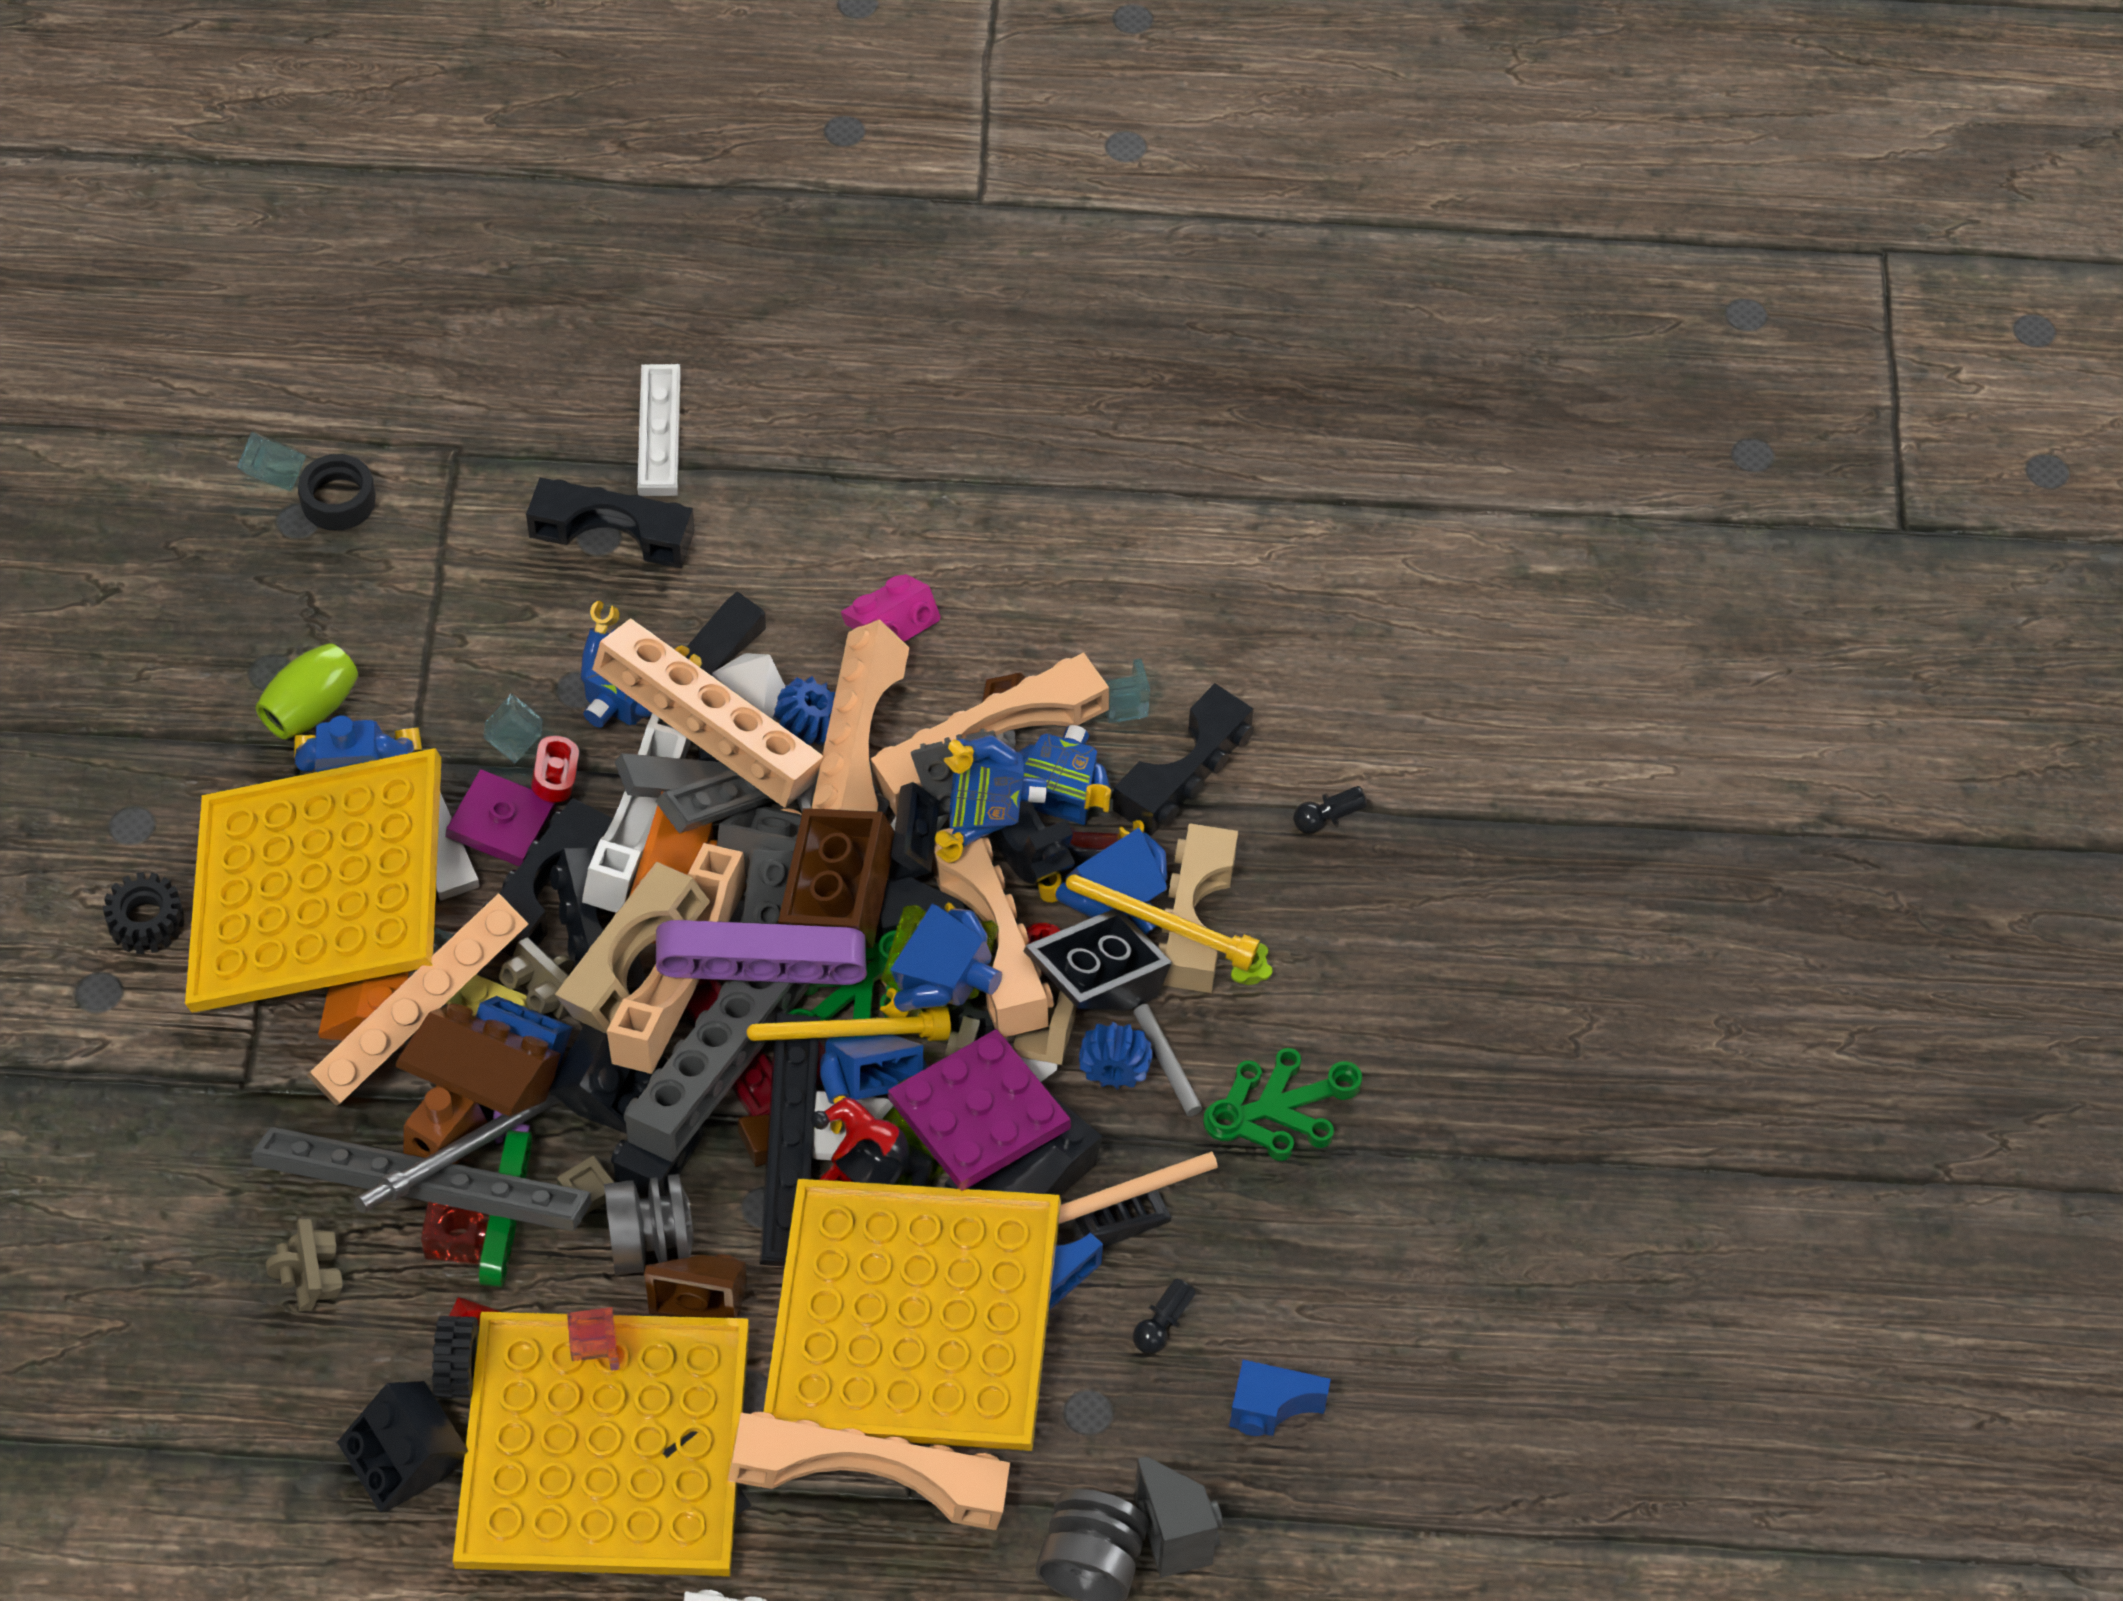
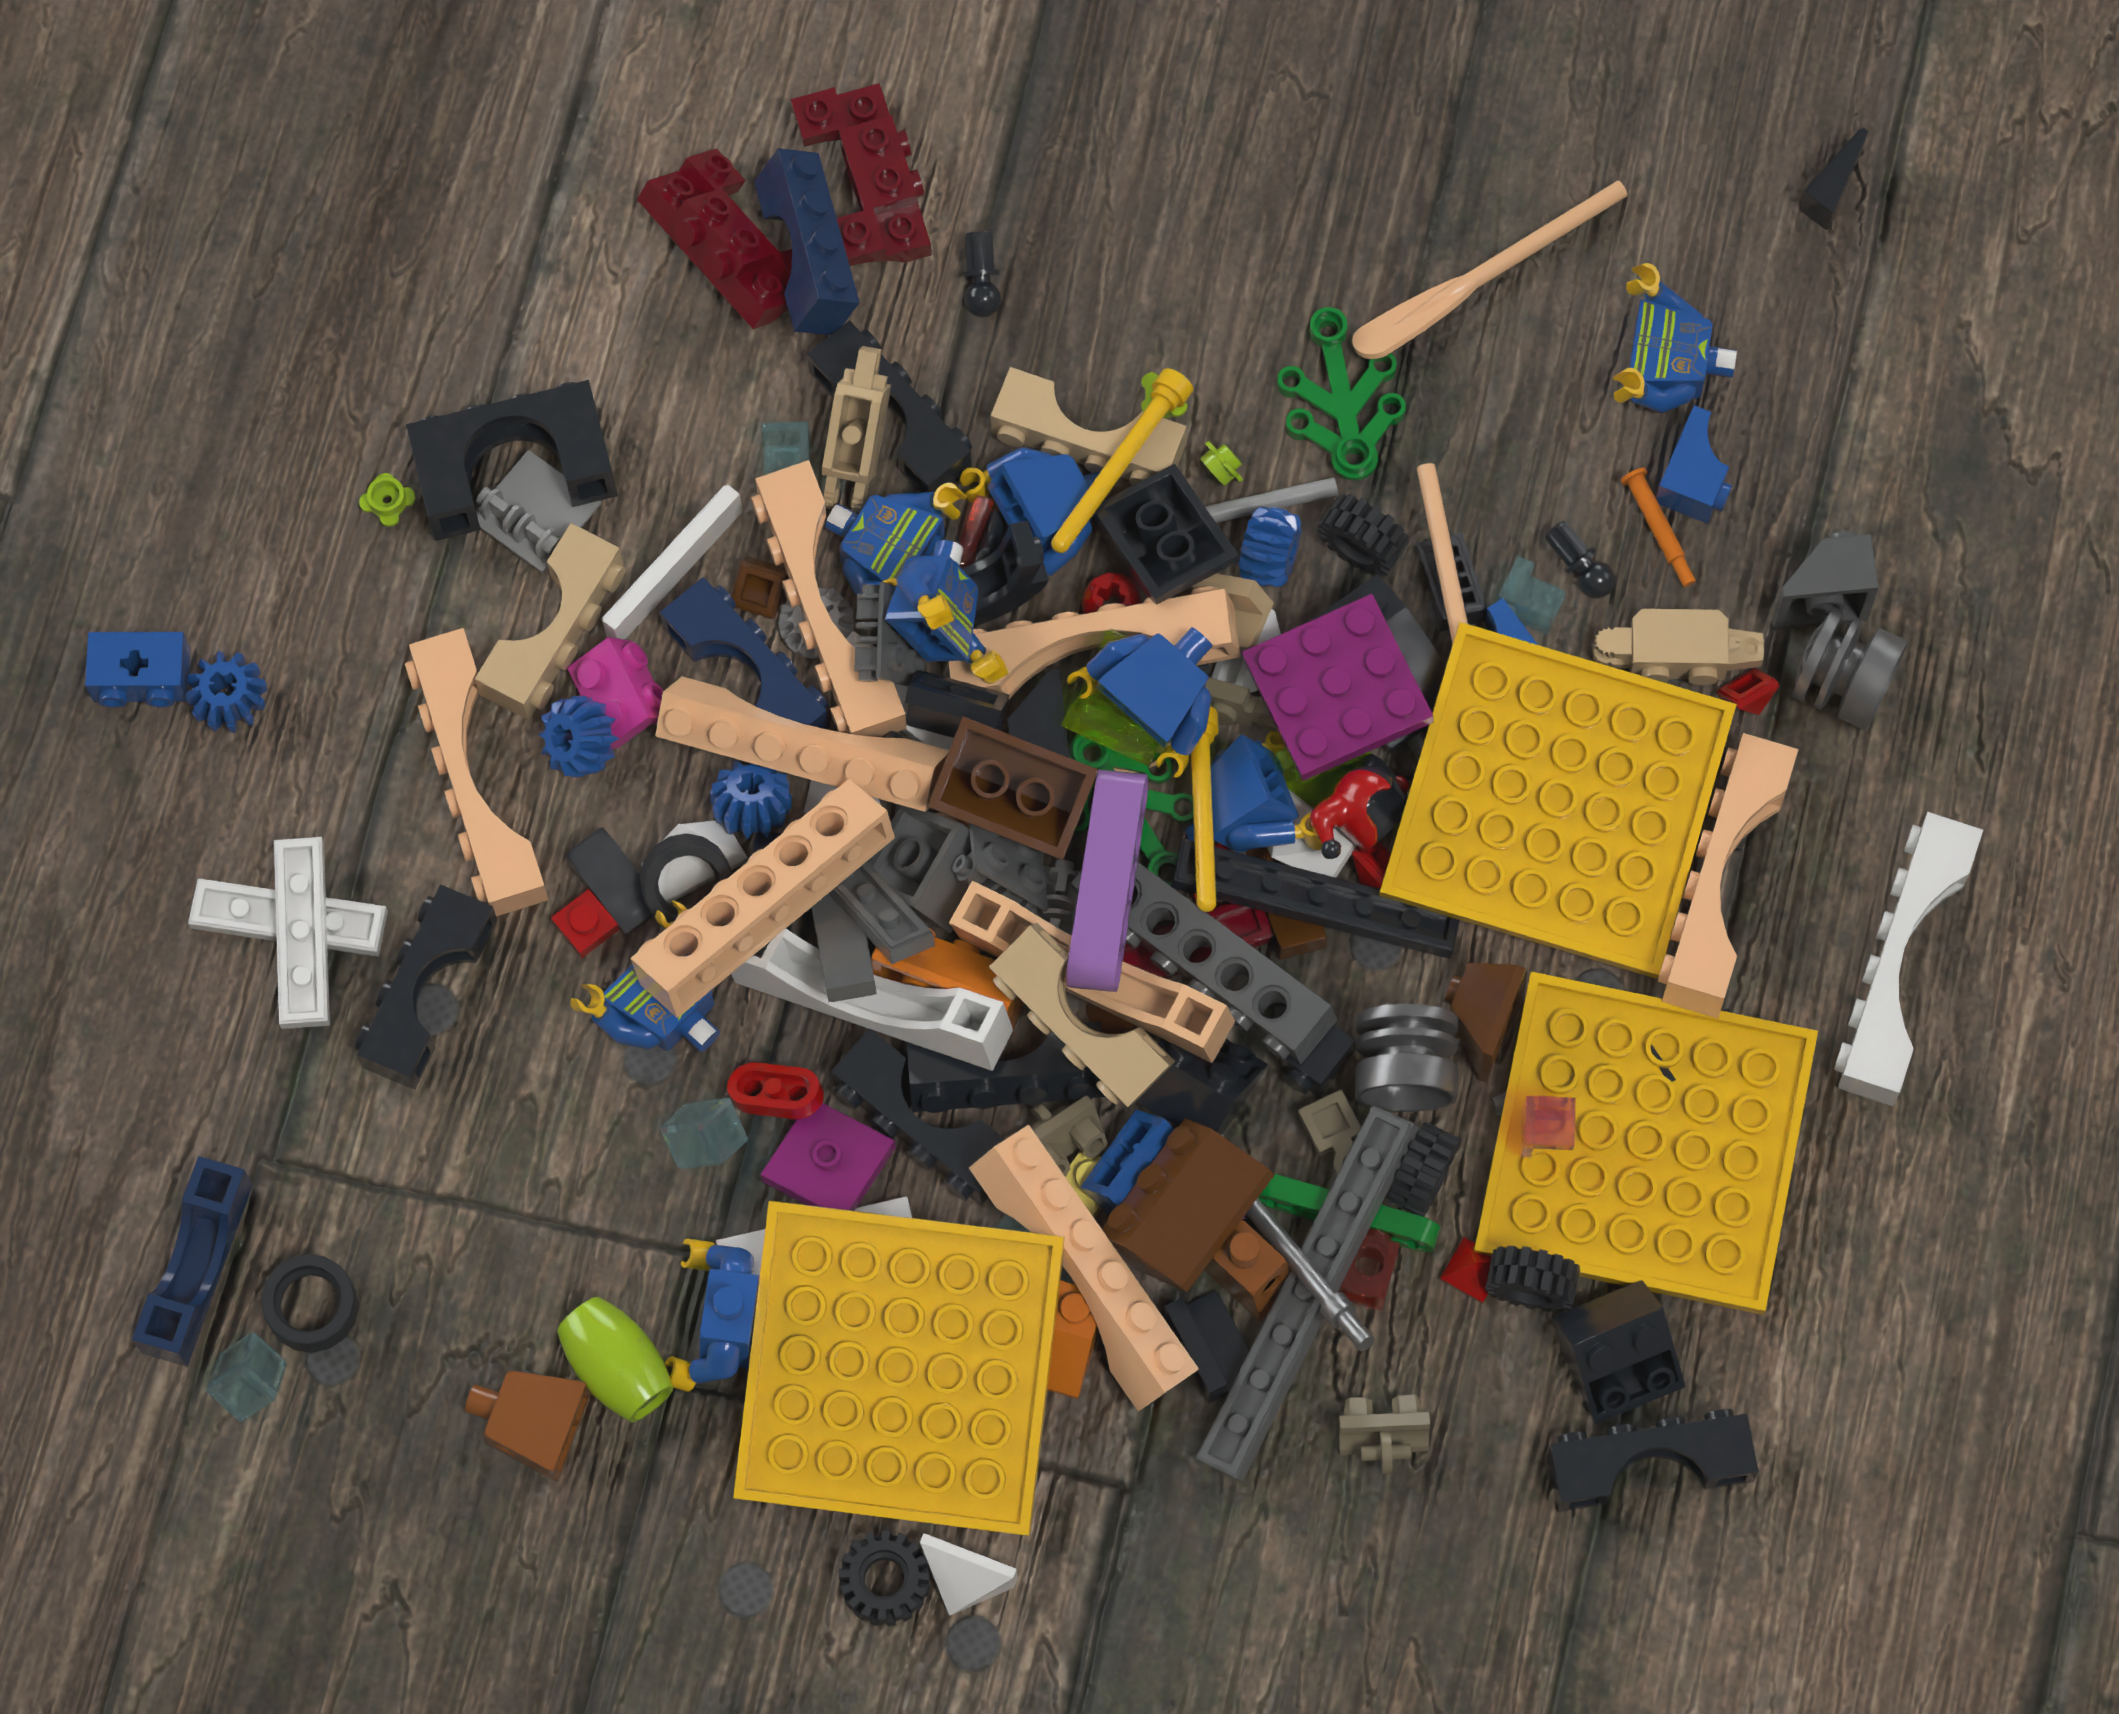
camera: 75 degrees left, 15 degrees up
(153, 968) = (963, 1575): none -> white slope
(251, 648) = (532, 1418): none -> dark orange torso
(312, 404) = (206, 1232): none -> dark blue arch
(313, 1533) = (1713, 1449): none -> black arch
(372, 1116) = (1210, 1340): none -> black panel
(546, 1255) = (1423, 1169): none -> black tyre
(642, 432) = (301, 933): none -> white tile
(683, 621) = (585, 923): none -> red plate
(750, 663) = (668, 850): none -> black tyre
(838, 353) = (218, 706): none -> blue gear
(840, 582) = (578, 736): none -> blue gear
(847, 295) = (117, 655): none -> blue brick
(868, 495) = (504, 859): none -> light nougat arch
(961, 660) = (708, 627): none -> dark blue arch
(983, 569) = (522, 671): none -> tan arch
(1004, 625) = (673, 563): none -> white tile
(1030, 424) = (385, 486): none -> lime plate
(1039, 530) = (531, 510): none -> light grey hinge
(1060, 1474) = (1750, 691): none -> red slope
(1078, 461) = (452, 444): none -> black arch
(1094, 1407) = (1679, 646): none -> tan hinge
(1118, 1278) = (1530, 598): none -> clear light blue panel
(1141, 1125) = (1363, 535): none -> black tyre
(1151, 725) = (856, 429): none -> tan hinge
(1191, 1014) = (1222, 463): none -> lime plate
(1214, 1381) = (1658, 524): none -> orange piece
(1304, 614) = (719, 236): none -> dark red bracket
(1316, 664) = (820, 282): none -> dark blue arch
(1381, 1155) = (1419, 313): none -> light nougat piece
(1385, 1358) = (1668, 348): none -> torso
(1401, 717) = (875, 158): none -> dark red bracket
(1601, 1483) = (1827, 189): none -> black slope

